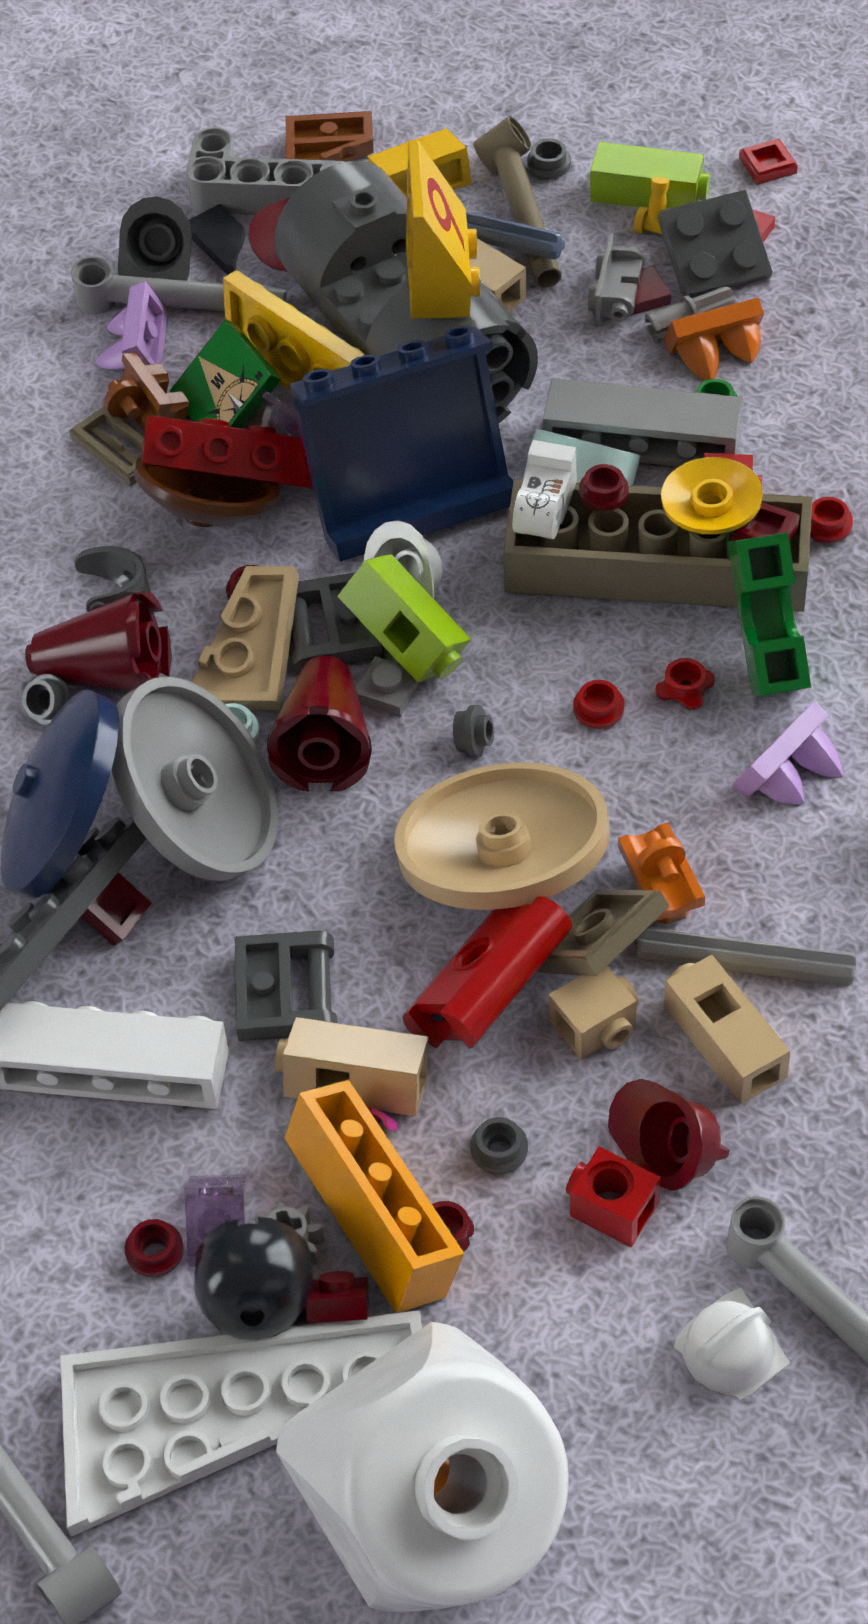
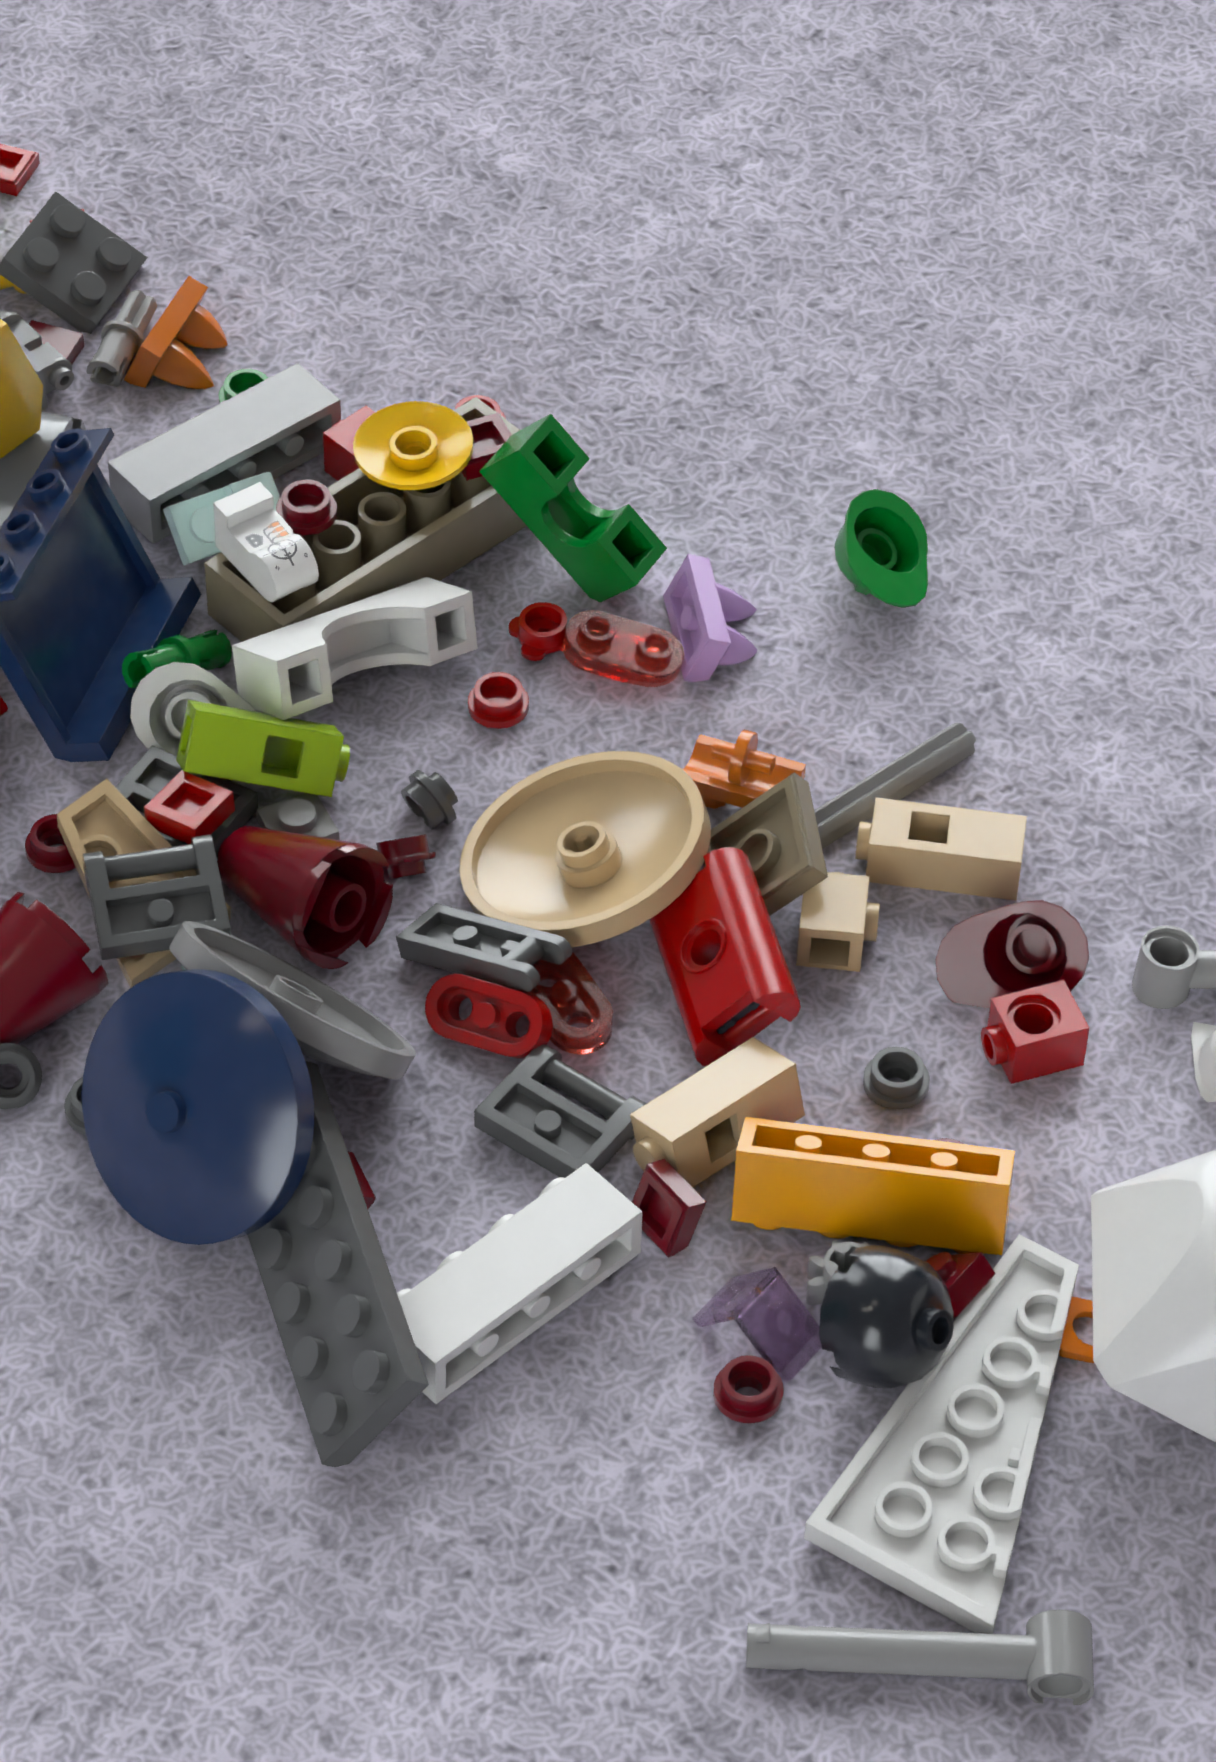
camera: 55 degrees left, 5 degrees down
(226, 671) = (150, 914): none -> dark grey plate
(253, 1093) = (668, 1207): none -> dark red tile
(318, 622) = (189, 807): none -> red plate
(320, 888) = (492, 1016): none -> red plate
(366, 841) = (481, 946): none -> dark grey hinge
(377, 920) = (572, 1001): none -> clear red plate
(413, 752) = (406, 855): none -> dark red plate
(448, 531) = (203, 650): none -> green pin
(487, 583) = (298, 663): none -> white arch
(713, 729) = (622, 649): none -> clear red plate

